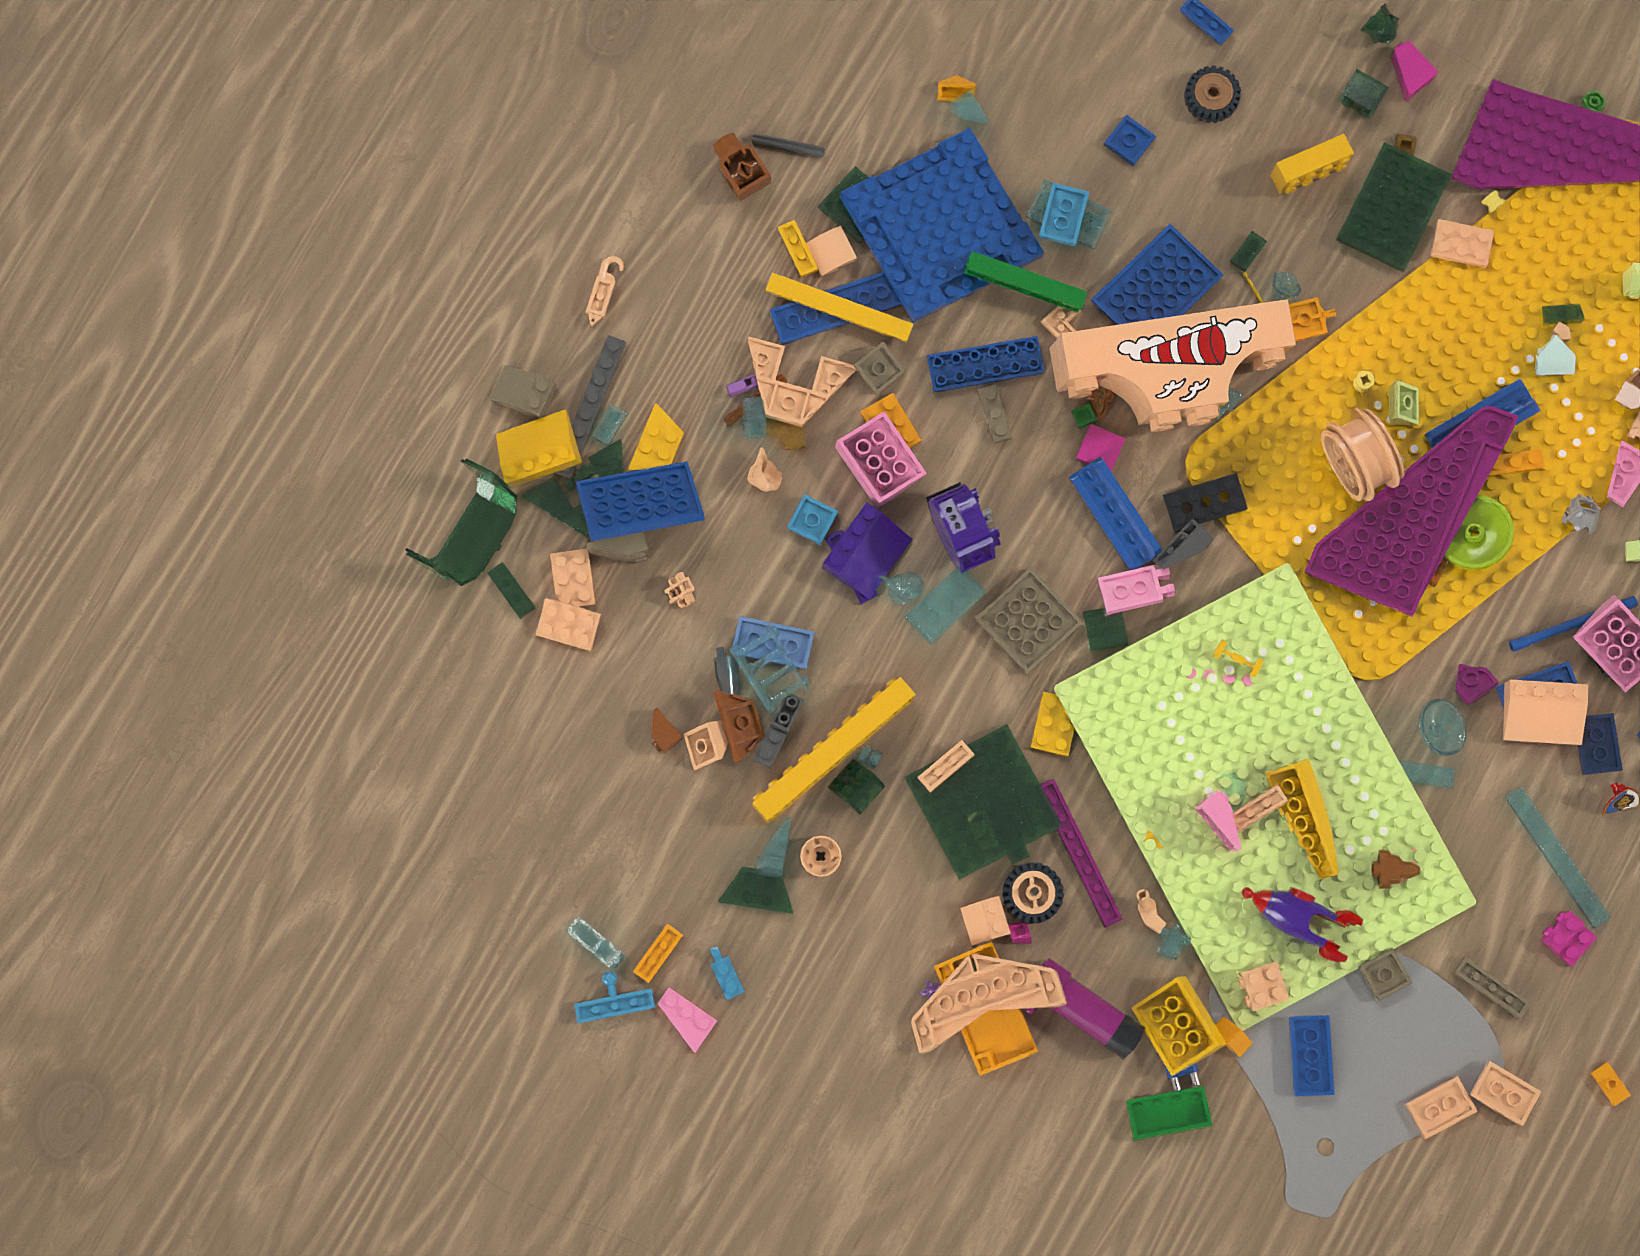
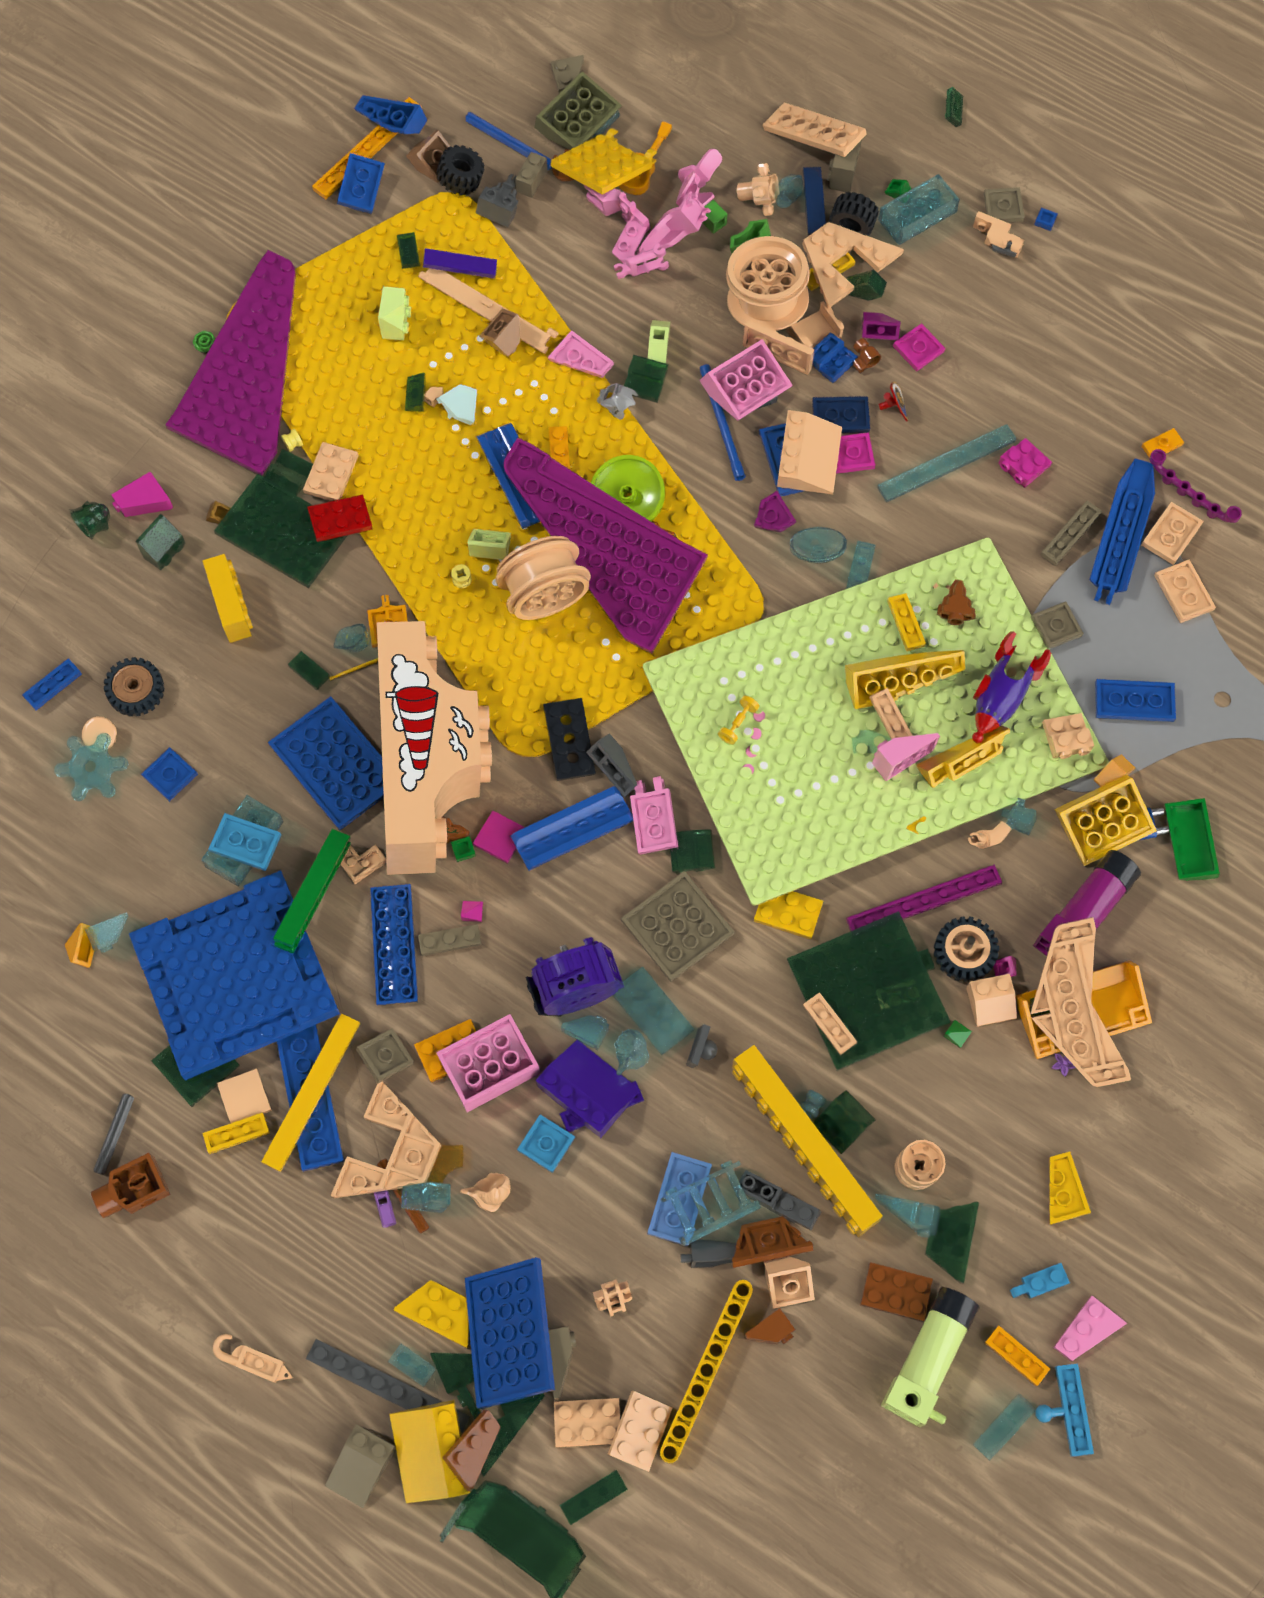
camera: 85 degrees left, 10 degrees down
(540, 480) = (472, 1448): none -> wing
(616, 671) = (707, 1359): none -> yellow beam
(649, 873) = (931, 1358): none -> yellowish green piece
(706, 843) = (896, 1292): none -> dark orange plate
(810, 995) = (1065, 1190): none -> yellow wing
(913, 652) = (701, 1047): none -> dark grey tile
(920, 547) = (587, 1030): none -> clear light blue slope
(951, 889) = (957, 1033): none -> green slope
(1025, 430) = (472, 911): none -> dark pink slope
(1128, 80) = (104, 766): none -> clear light blue plate
(1161, 70) = (94, 727): none -> light nougat piece
(1226, 881) = (962, 757): none -> yellow wedge
(1366, 819) = (906, 622): none -> yellow plate
(1412, 258) = (340, 518): none -> red plate
(1458, 204) = (289, 472): none -> clear green slope
(1503, 1042) = (1124, 530): none -> blue hinge
(1531, 1153) = (1169, 476): none -> magenta bar
(1554, 760) = (855, 453): none -> dark pink plate
(1612, 542) = (646, 377): none -> clear green slope

